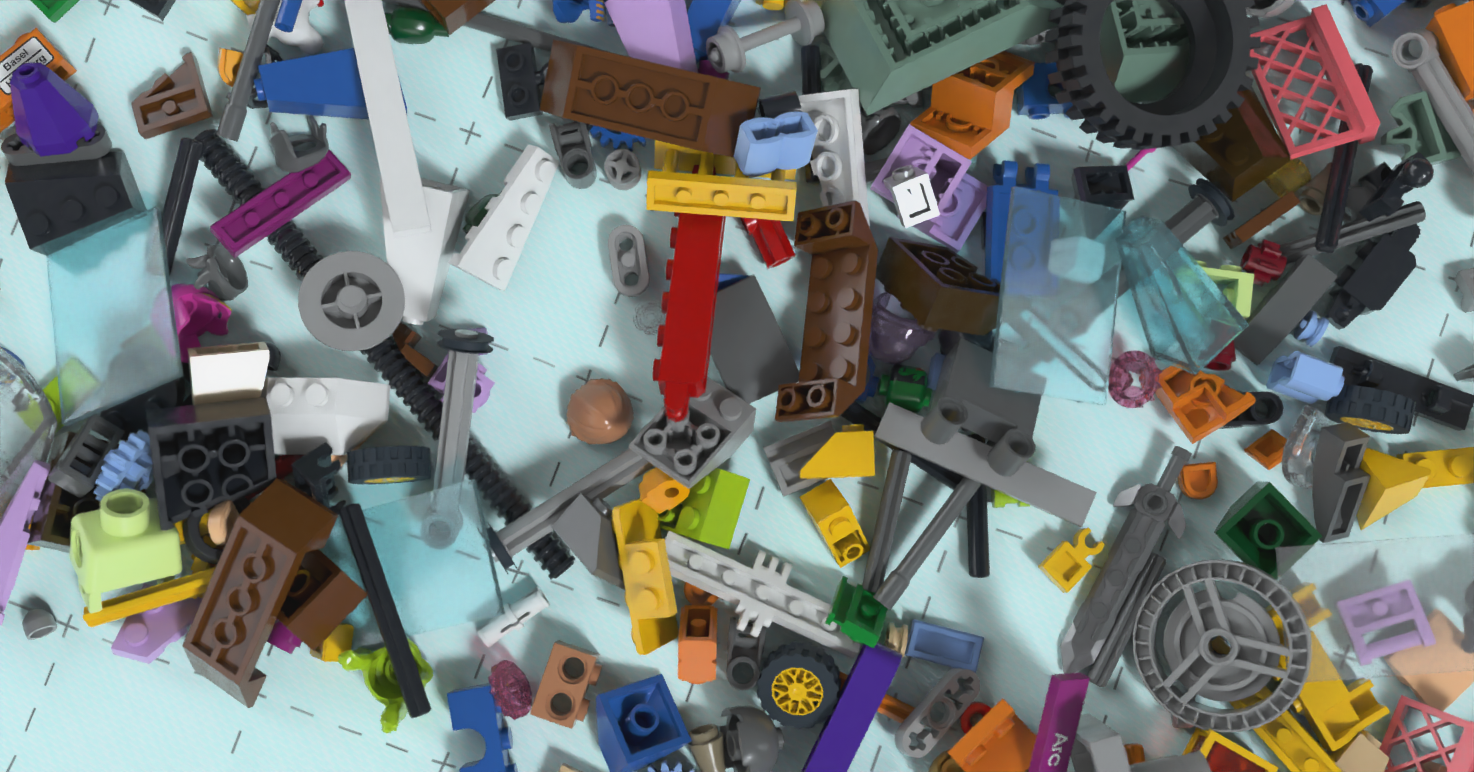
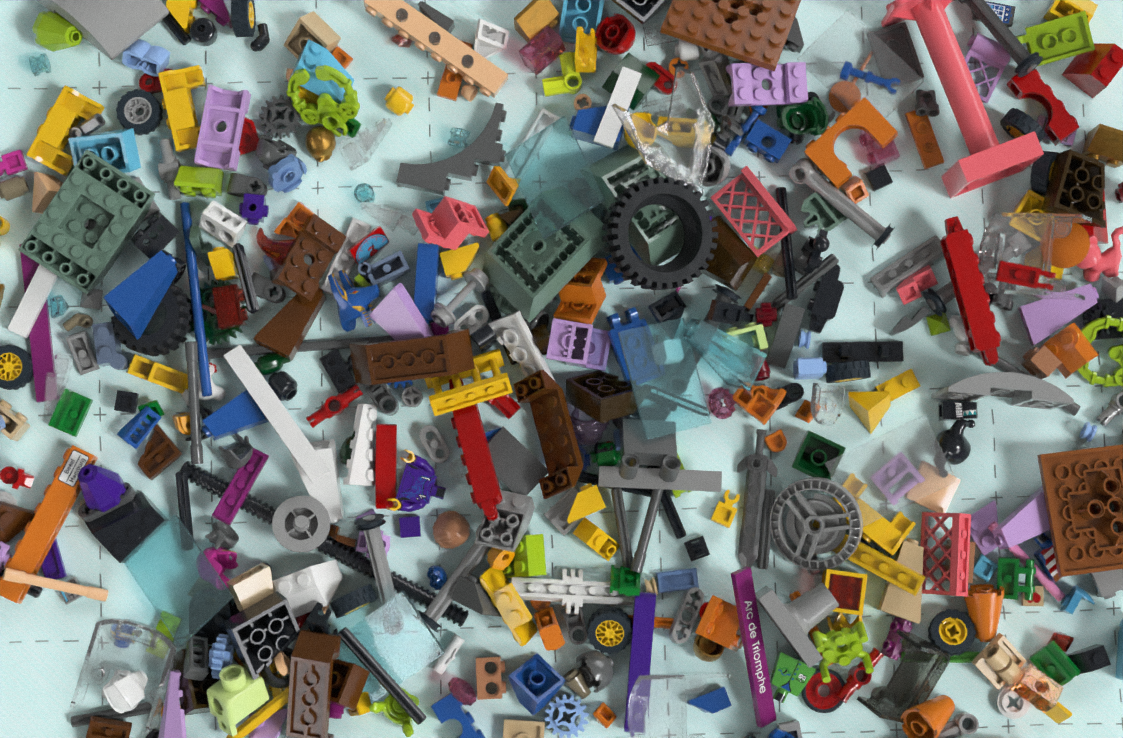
camera: 20 degrees left, 0 degrees up
(150, 63) = (126, 431): none -> blue slope
(190, 26) = (155, 406): none -> green slope
(419, 69) = (283, 385): none -> black head
(472, 140) = (343, 399): none -> red pin
(534, 265) = (386, 464): none -> red slope
(534, 381) = (410, 527): none -> dark purple tile
(546, 480) = (437, 577): none -> blue plate
(571, 316) = (417, 485): none -> dark purple torso
(768, 78) = (470, 320): none -> white plate
(775, 143) = (487, 355): light blue brick -> none
(876, 150) = (541, 338): none -> dark brown slope
(912, 195) = (568, 356): bracket -> none
(997, 605) = (696, 548): none -> black tile
(1205, 232) = (728, 313): none -> black hinge
(1338, 480) = (846, 414): dark grey slope -> none

